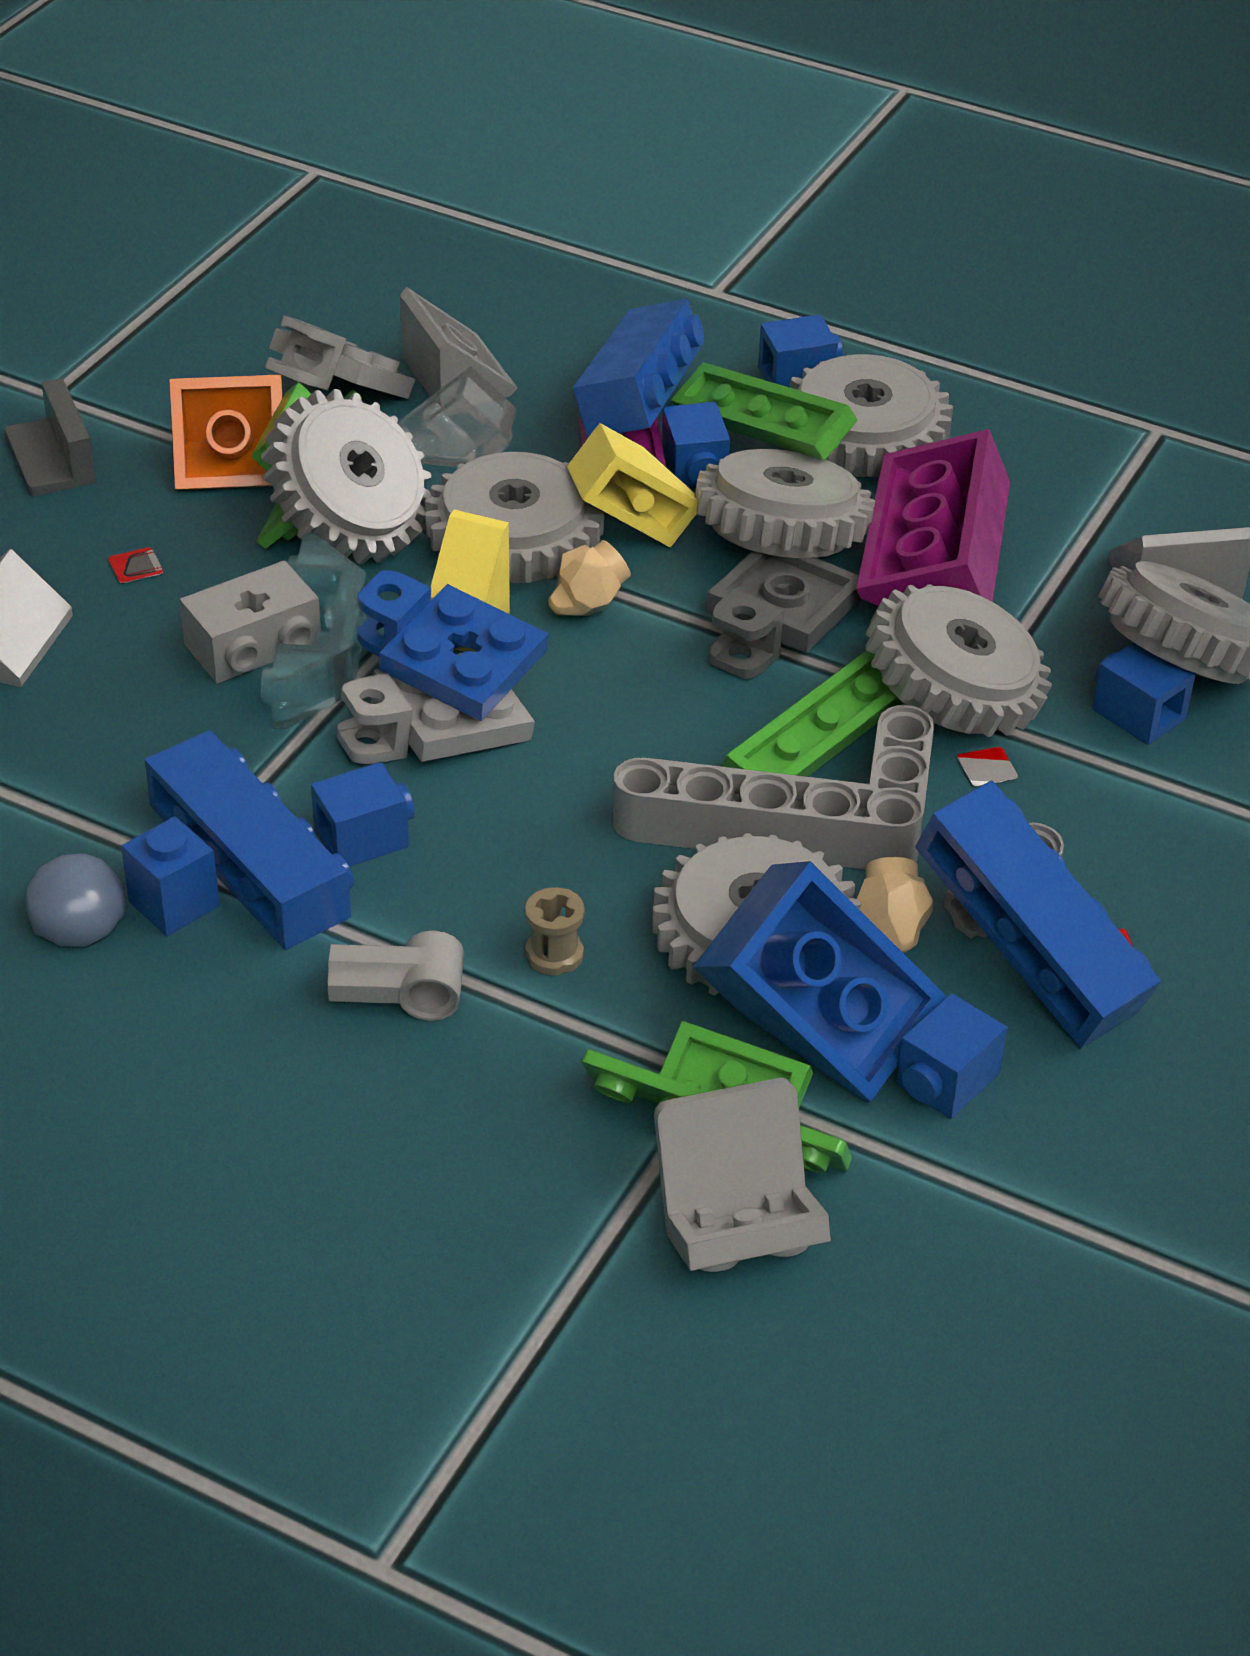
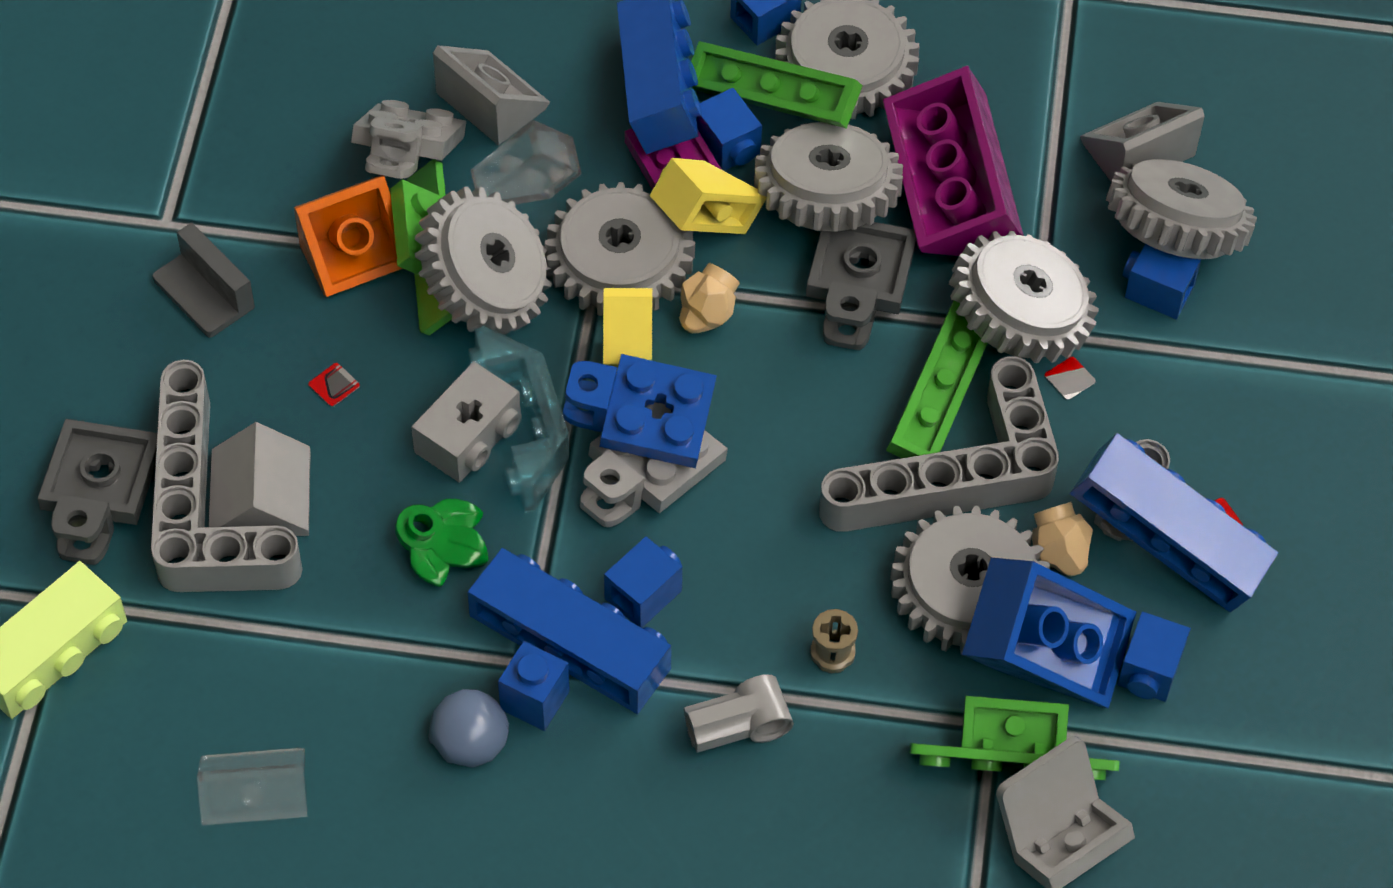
camera: 20 degrees left, 15 degrees up
(159, 719) = (447, 543): none -> green plate

